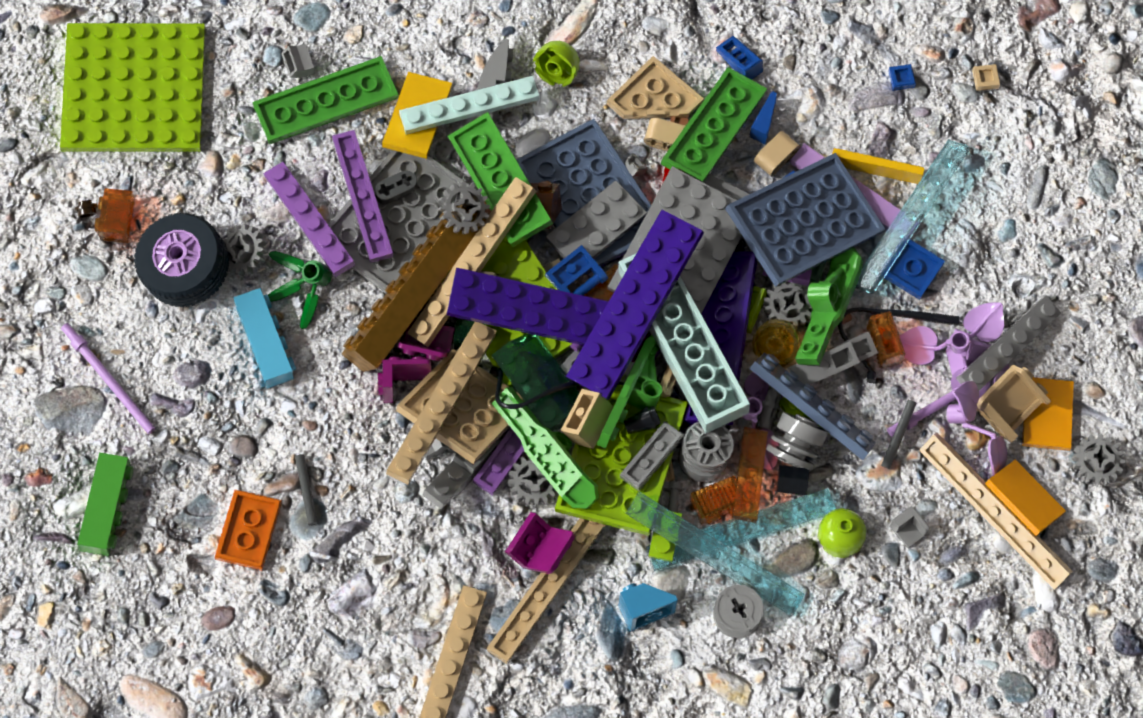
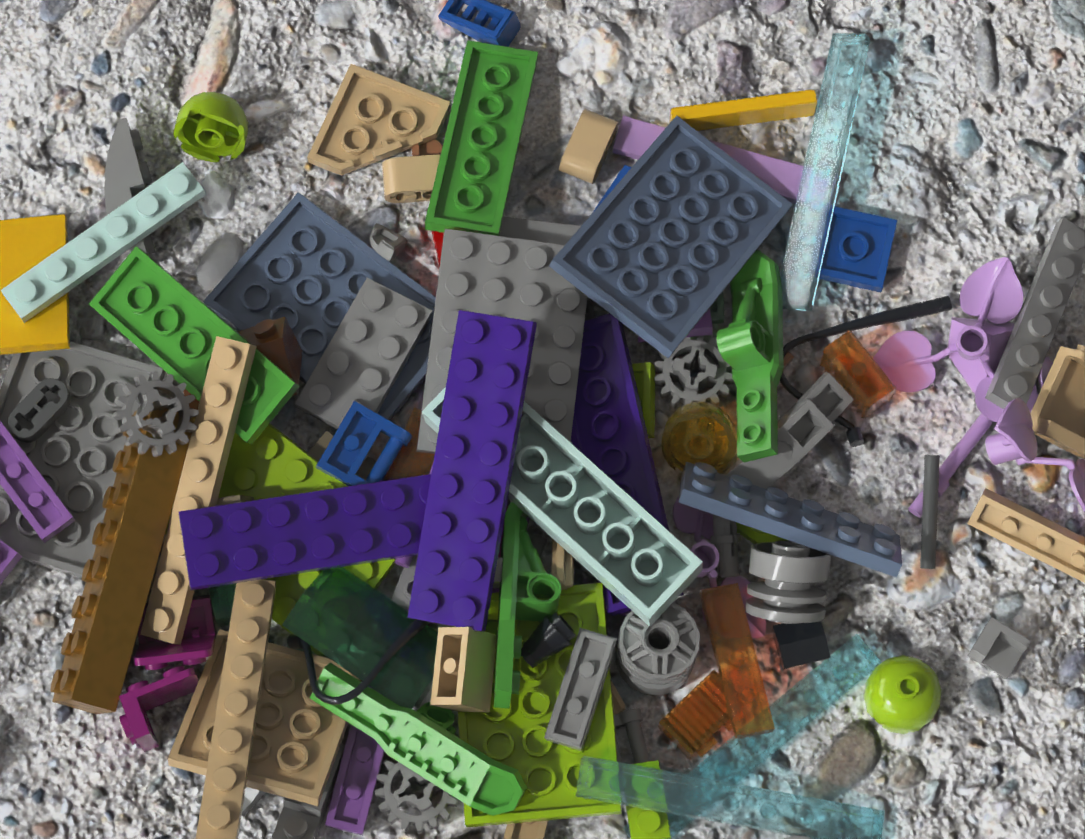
camera: 15 degrees left, 5 degrees up
(761, 125) = (551, 113): blue slope -> none

